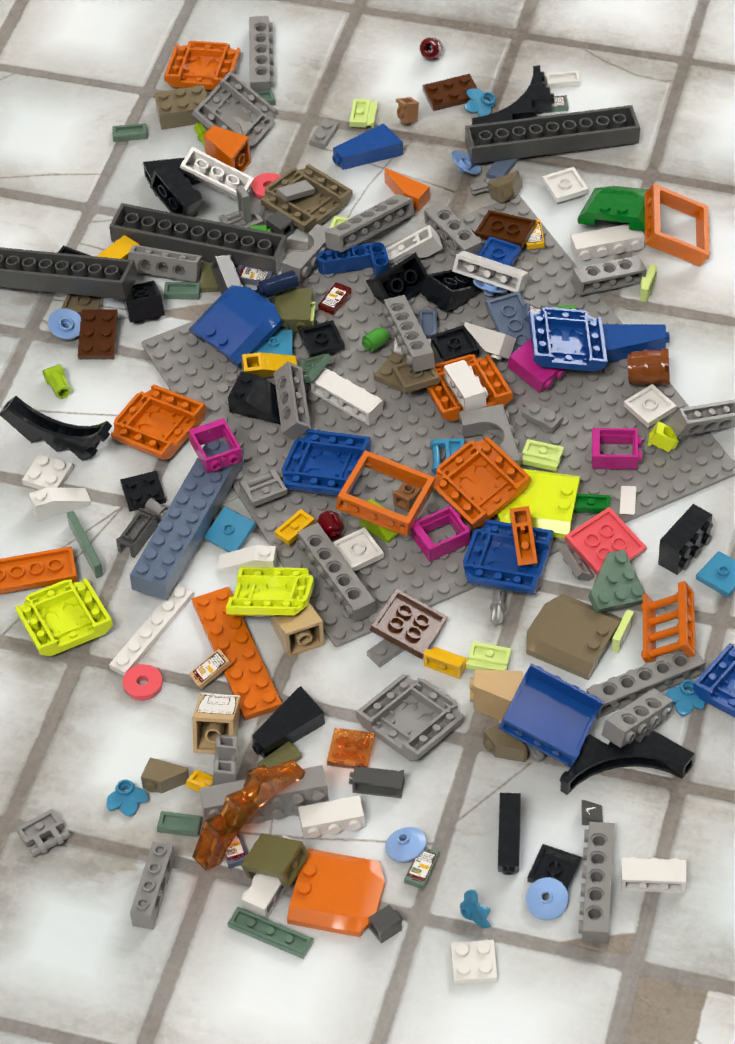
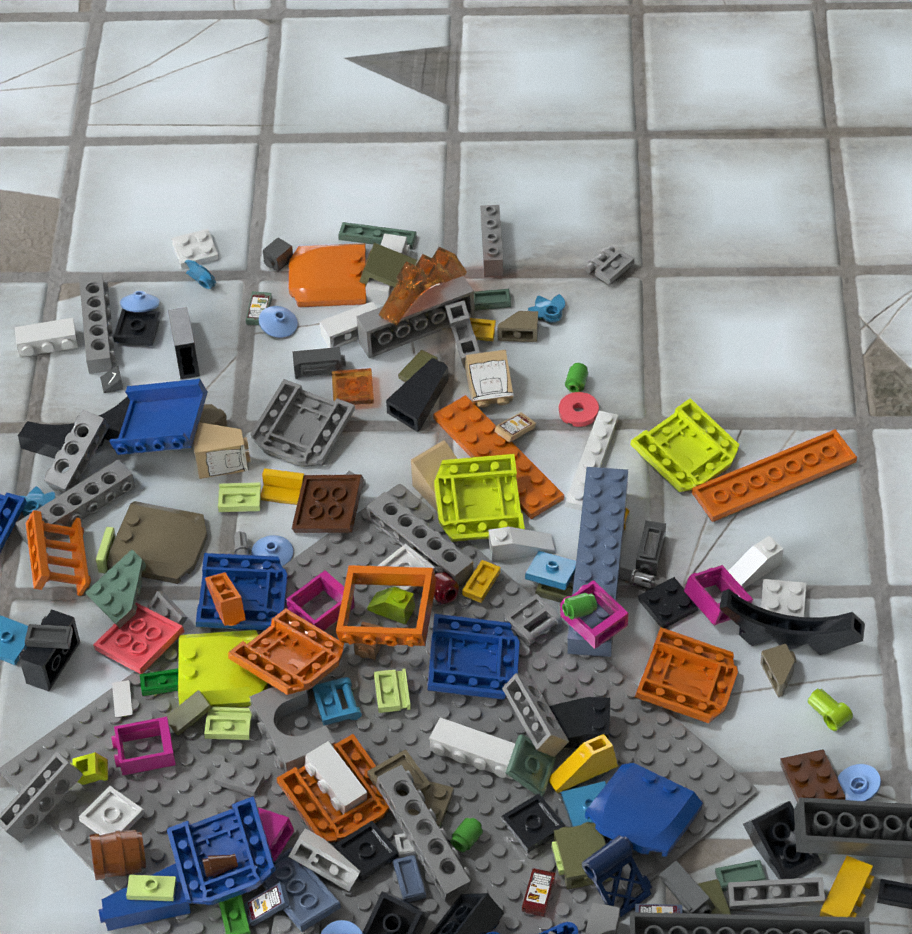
camera: 165 degrees right, 0 degrees up
(79, 412) = (778, 666): none -> dark tan slope
(85, 544) = (701, 524): sand green tile -> none
(88, 467) = (723, 580): none -> dark pink window
(131, 708) = (576, 377): none -> bright green brick
(227, 433) = (579, 605): none -> bright green brick
(401, 450) = (391, 690): none -> yellowish green plate
(470, 613) = (280, 545): none -> light blue dish
(571, 326) = (219, 864): none -> reddish brown cone
(573, 466) = (188, 712): none -> olive tile
(626, 333) = (151, 888): none -> yellowish green plate
(684, 523) = (48, 636): none -> dark grey tile

